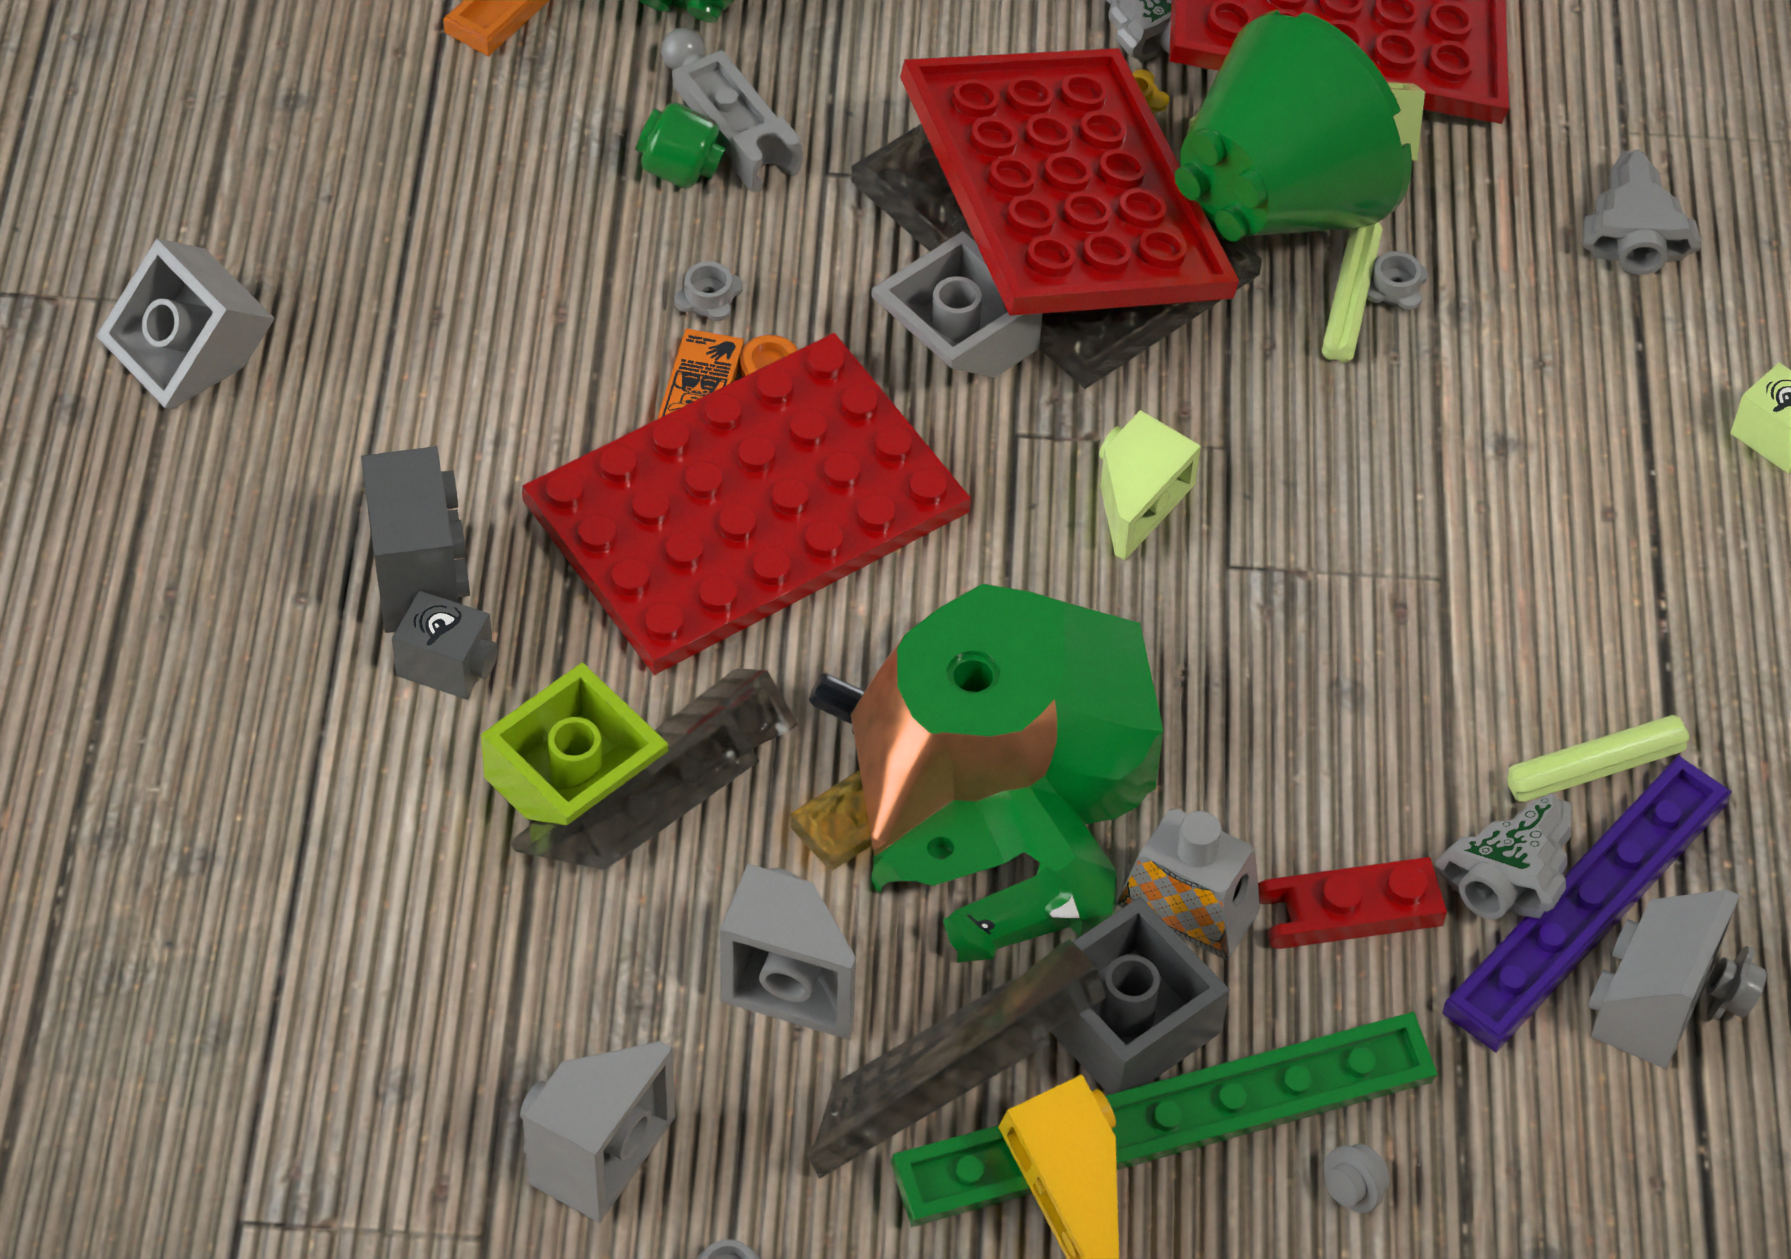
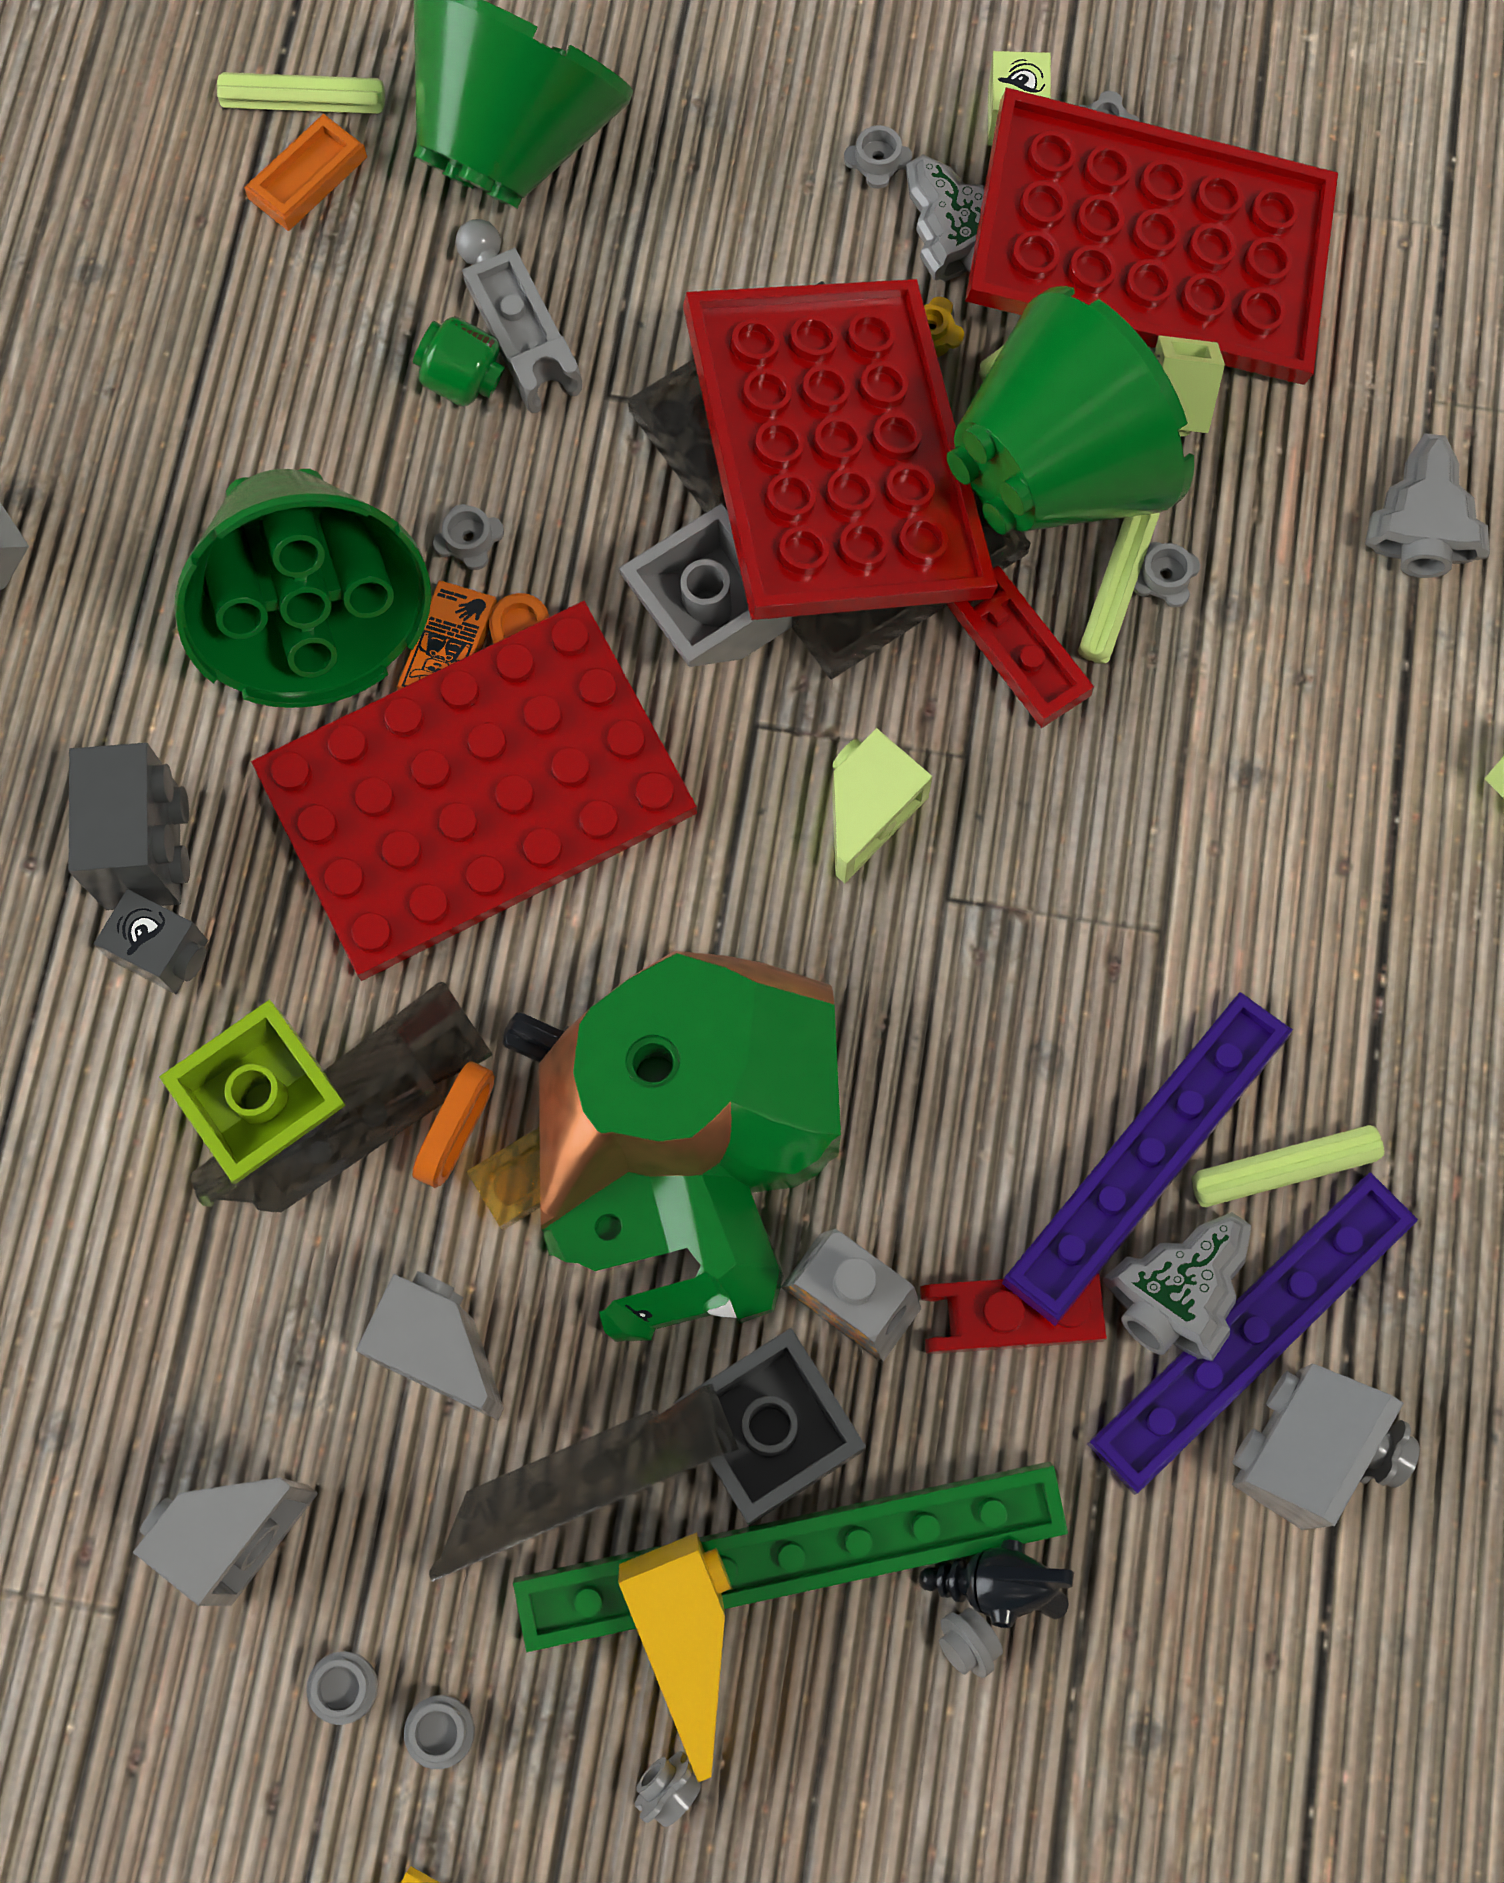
camera: 10 degrees right, 20 degrees up
(571, 324) = (300, 592): none -> green cone
(771, 777) = (453, 1125): none -> orange tile
(1269, 350) = (1024, 651): none -> red hinge
(1384, 1116) = (1002, 1584): none -> black piece
(1459, 756) = (1146, 1159): none -> dark purple tile

